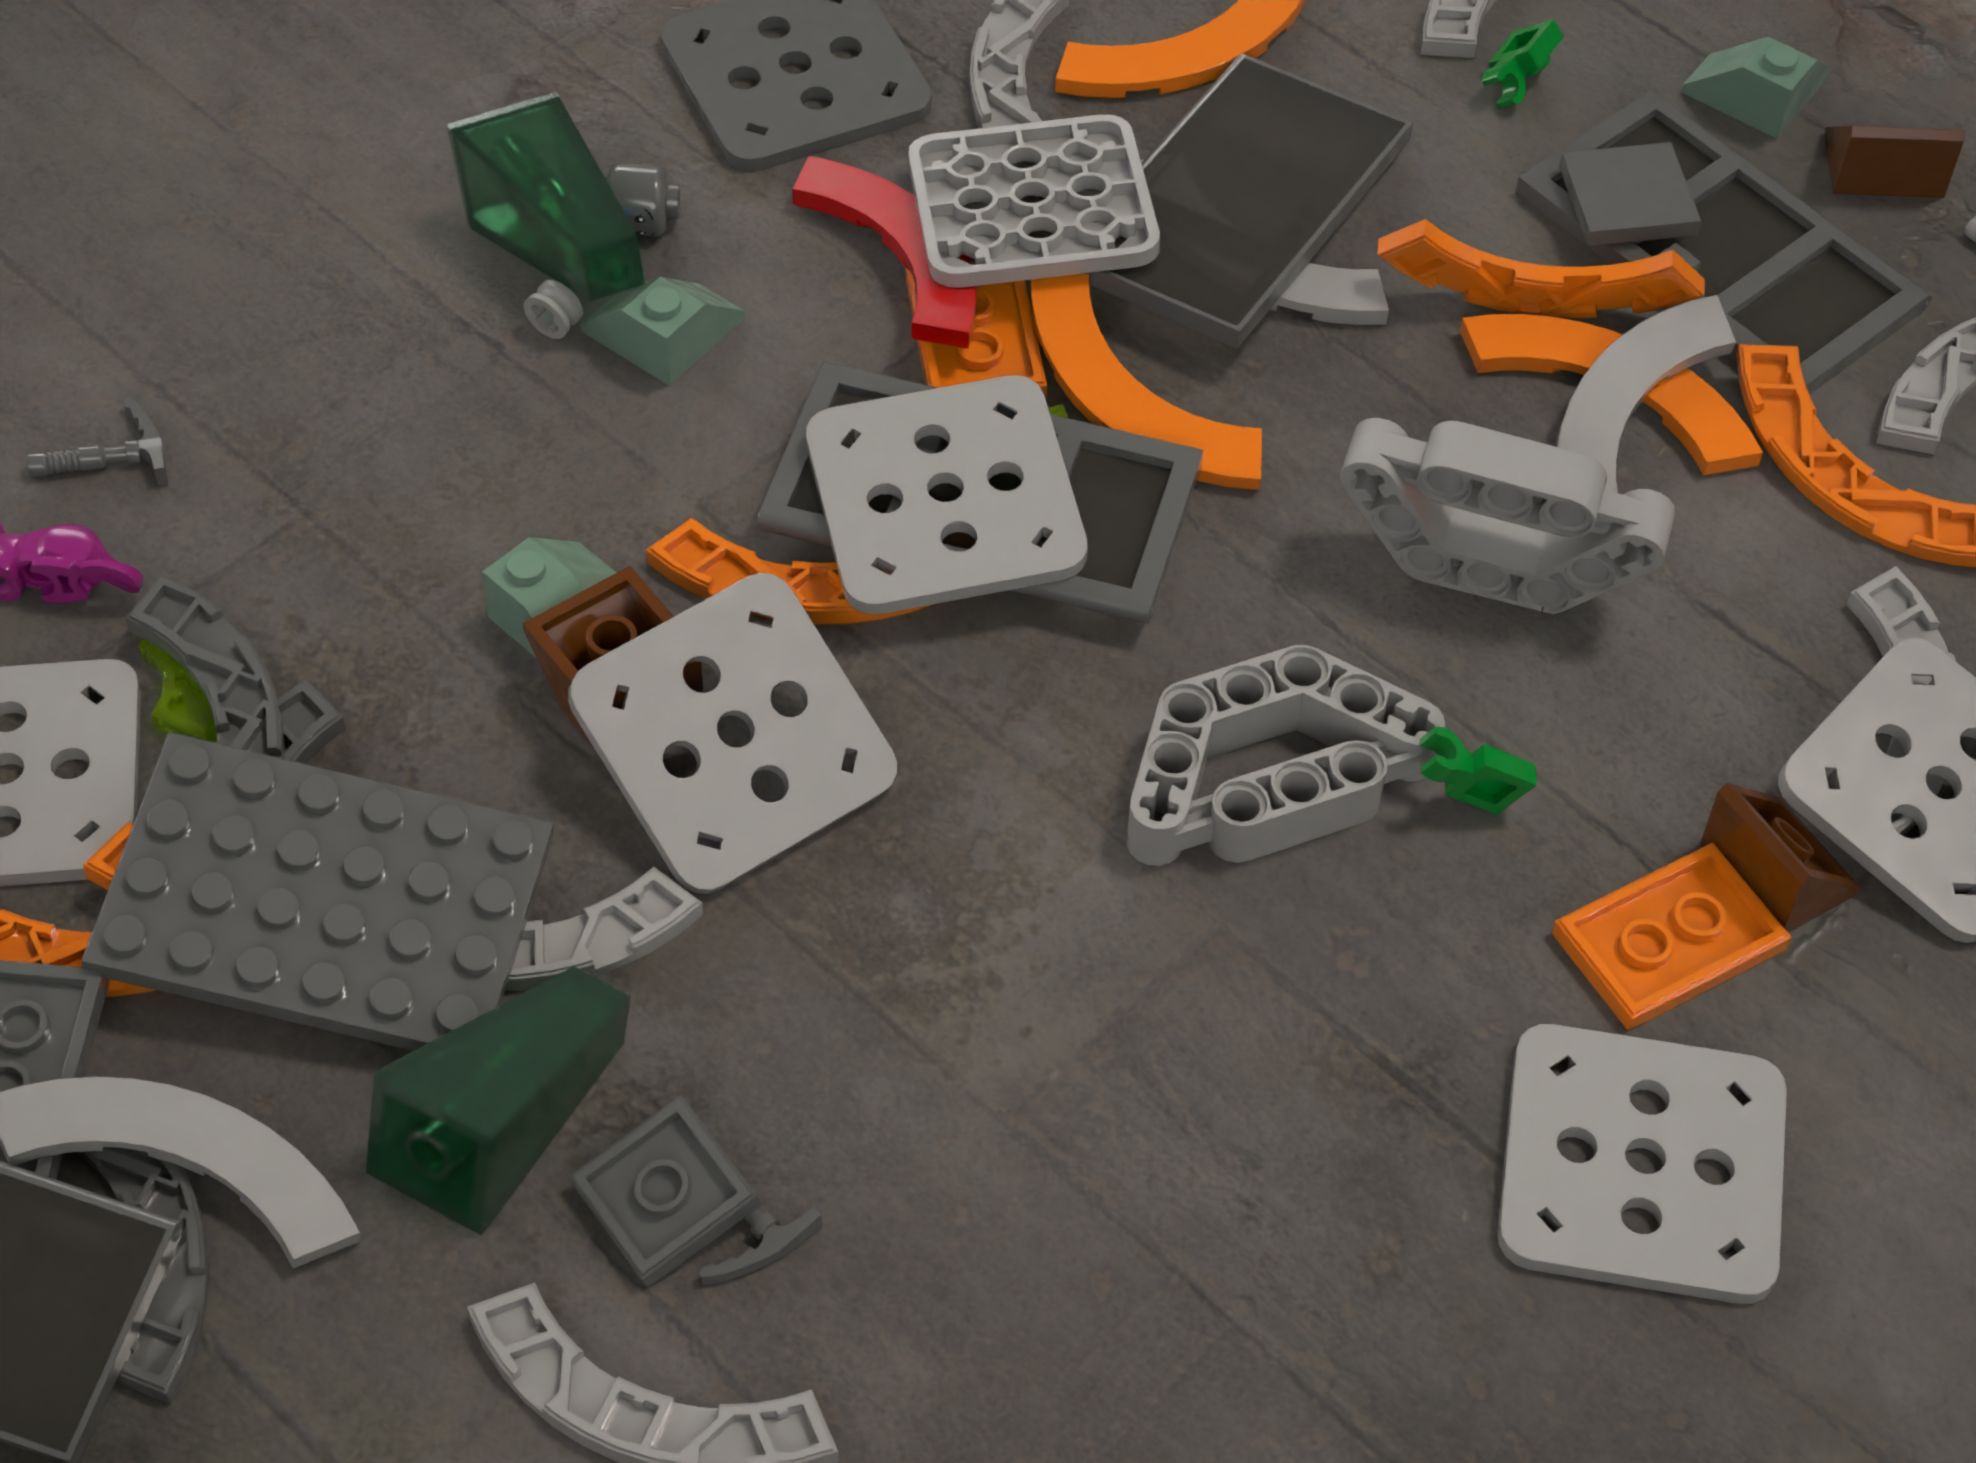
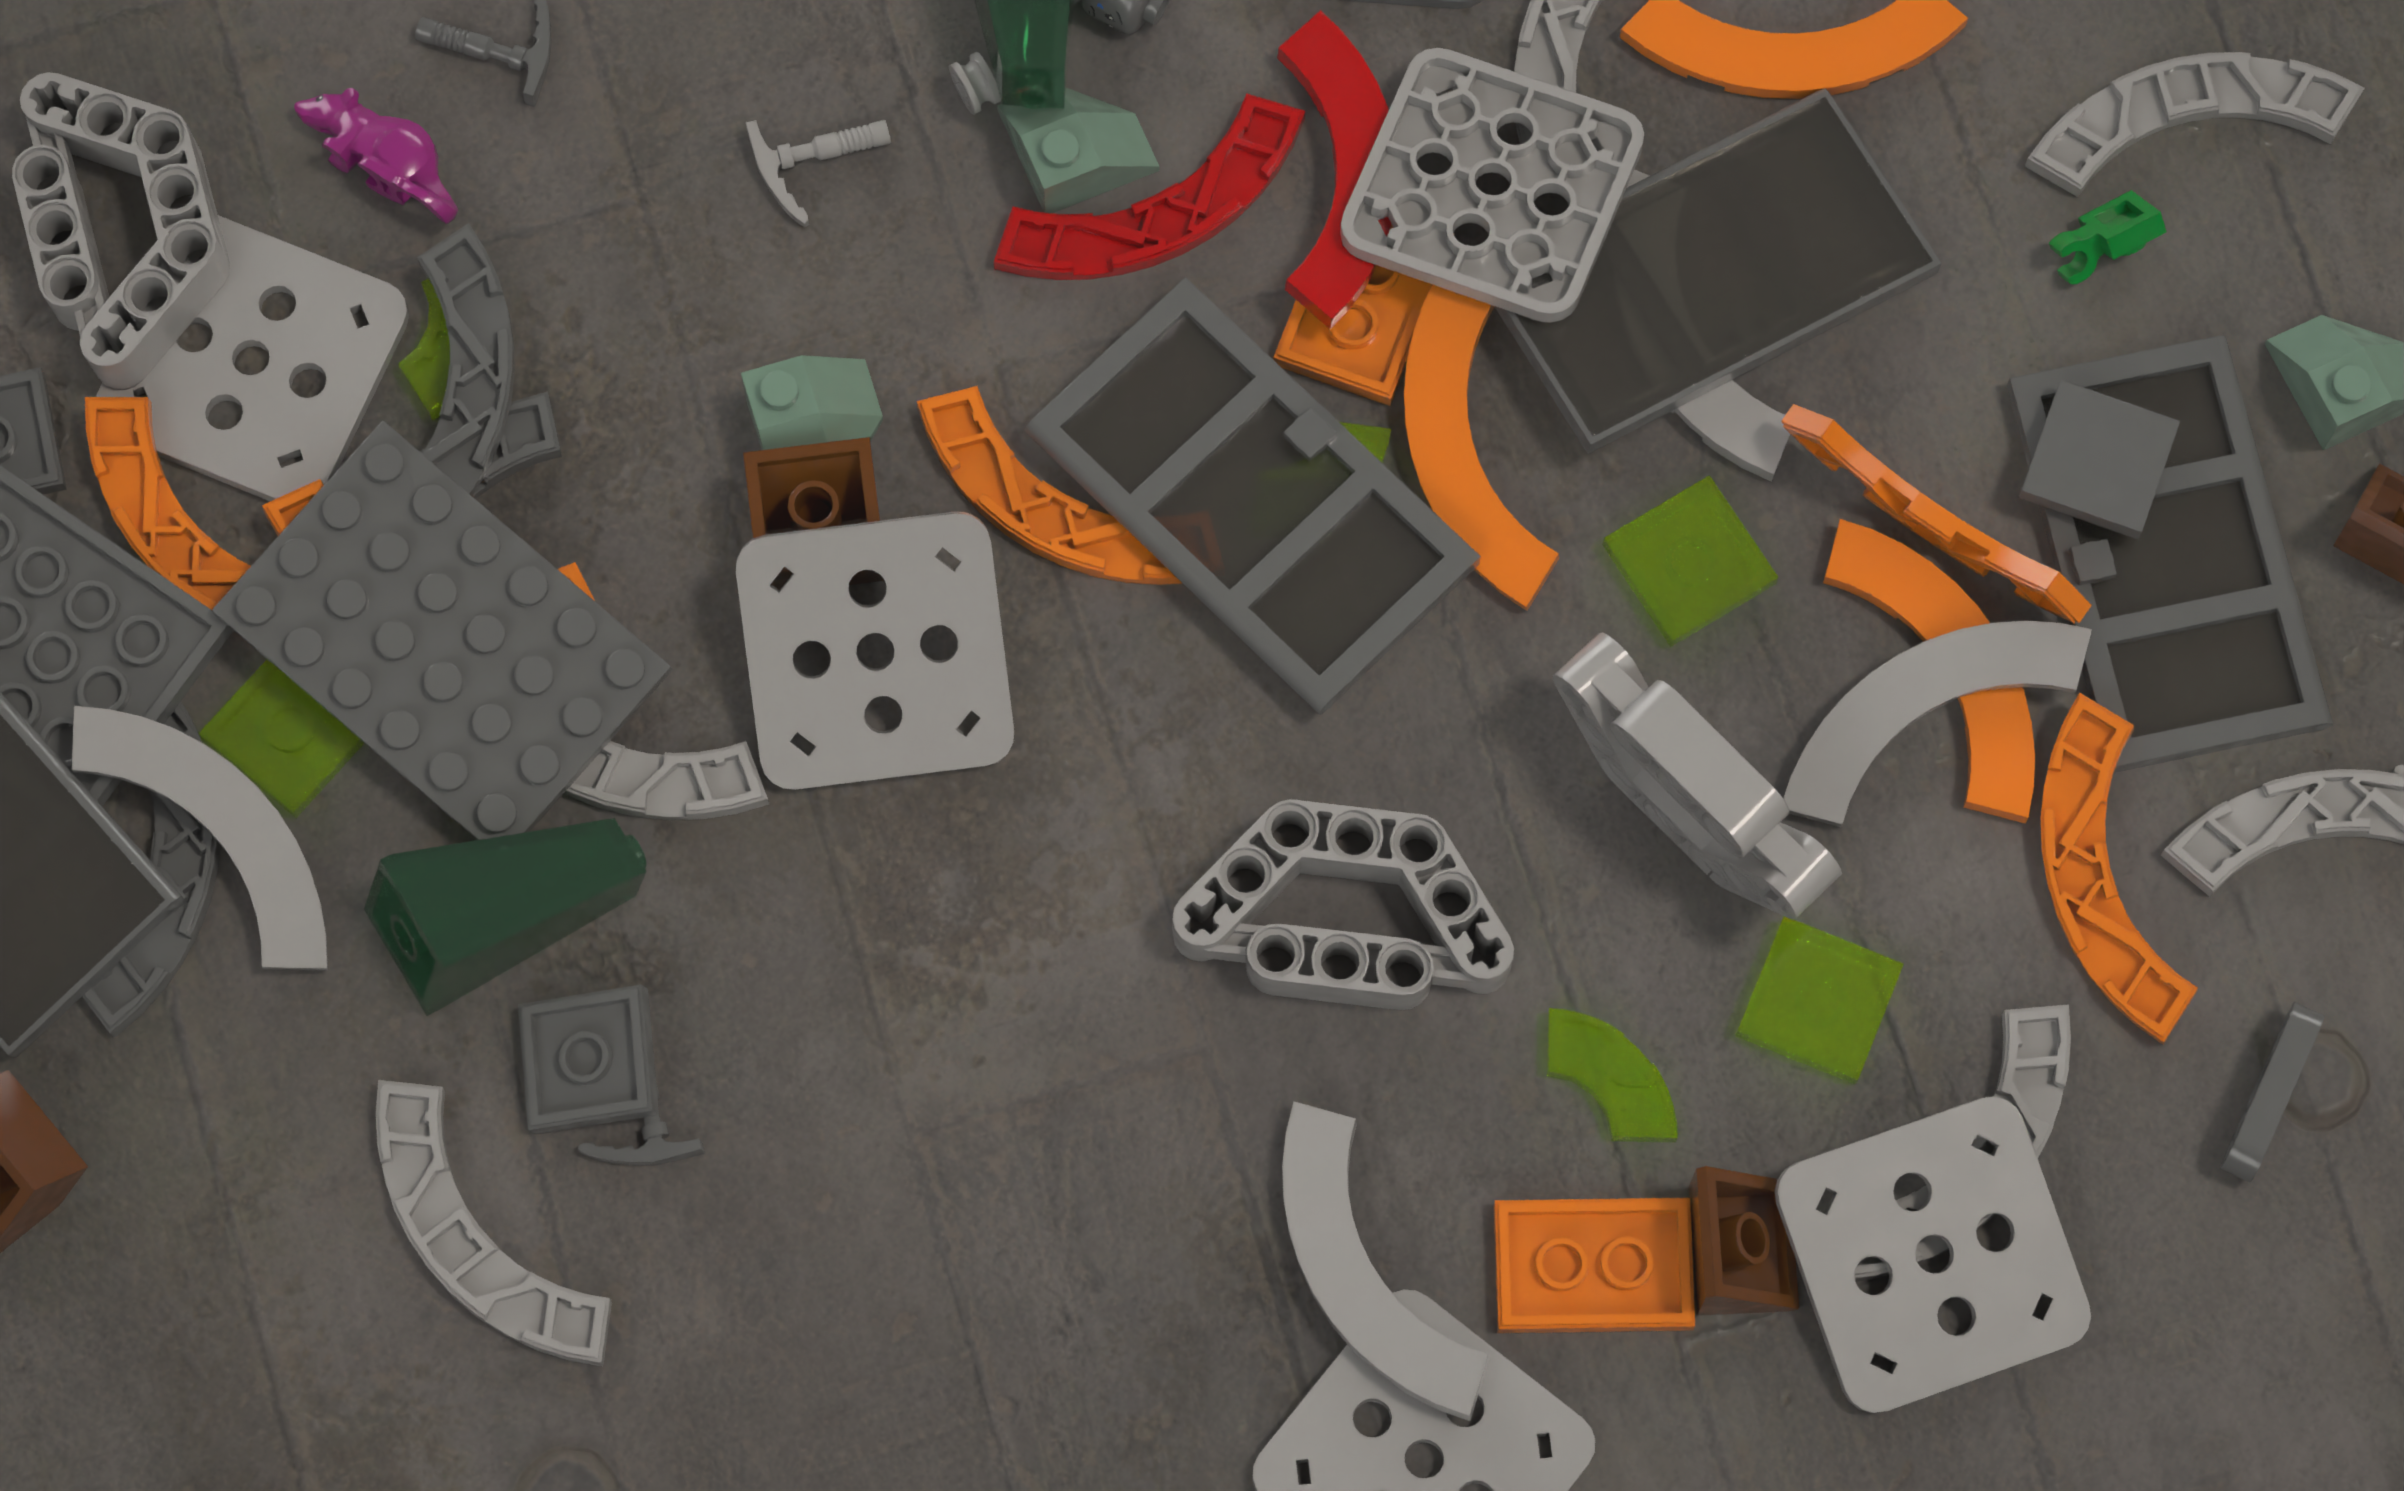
camera: 30 degrees right, 20 degrees up
(209, 1050) = (281, 738): none -> clear neon green tile
(408, 436) = (822, 147): none -> light grey piece
(768, 353) = (1162, 224): none -> red tile
(911, 538) = (1239, 547): light grey piece -> none
(1363, 383) = (1690, 560): none -> clear neon green tile
(1481, 778) = (1518, 1032): green plate -> none
(1483, 1044) = (1346, 1282): none -> light grey tile
(1593, 789) = (1613, 1073): none -> clear neon green tile
(1701, 653) = (1819, 1000): none -> clear neon green tile

